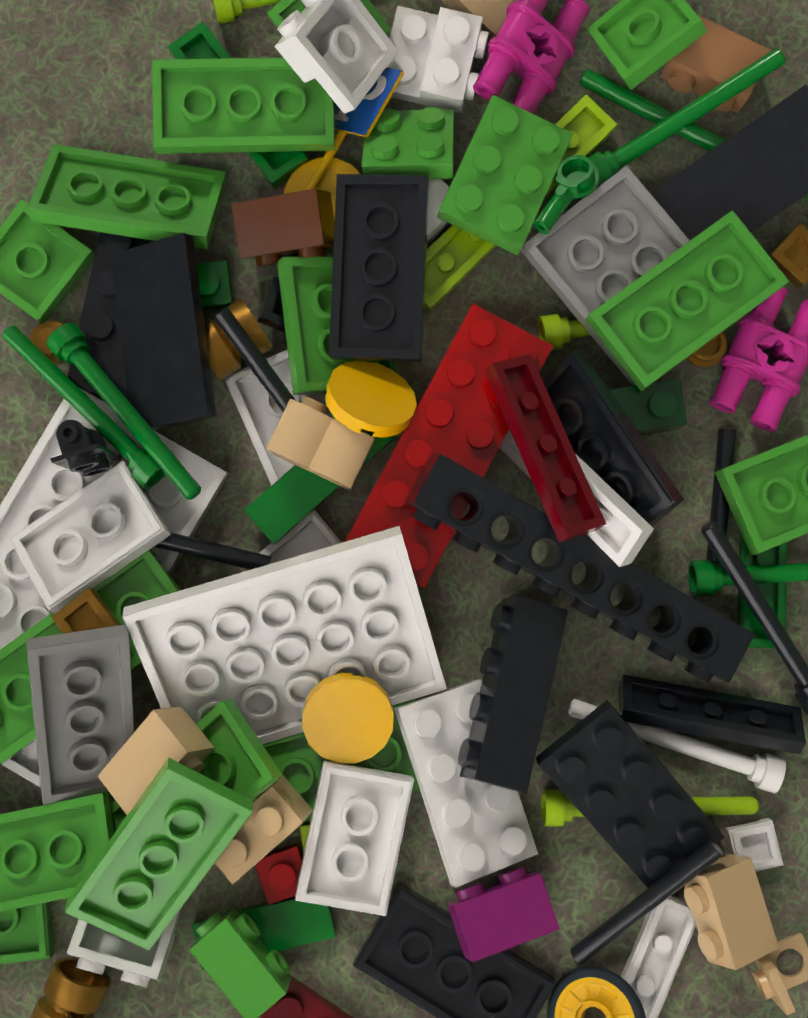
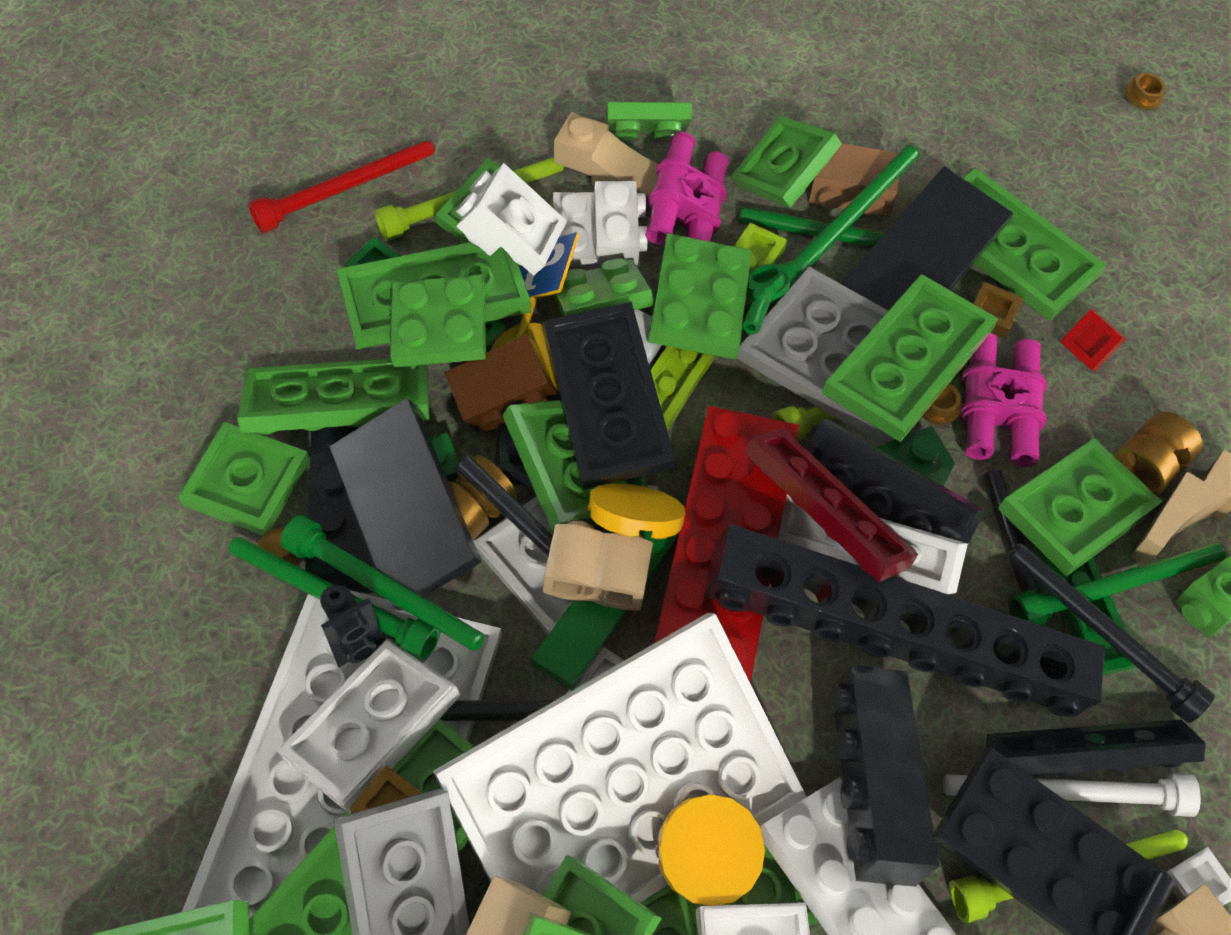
camera: 20 degrees left, 25 degrees down
(235, 148) = (438, 321): none -> bright green plate

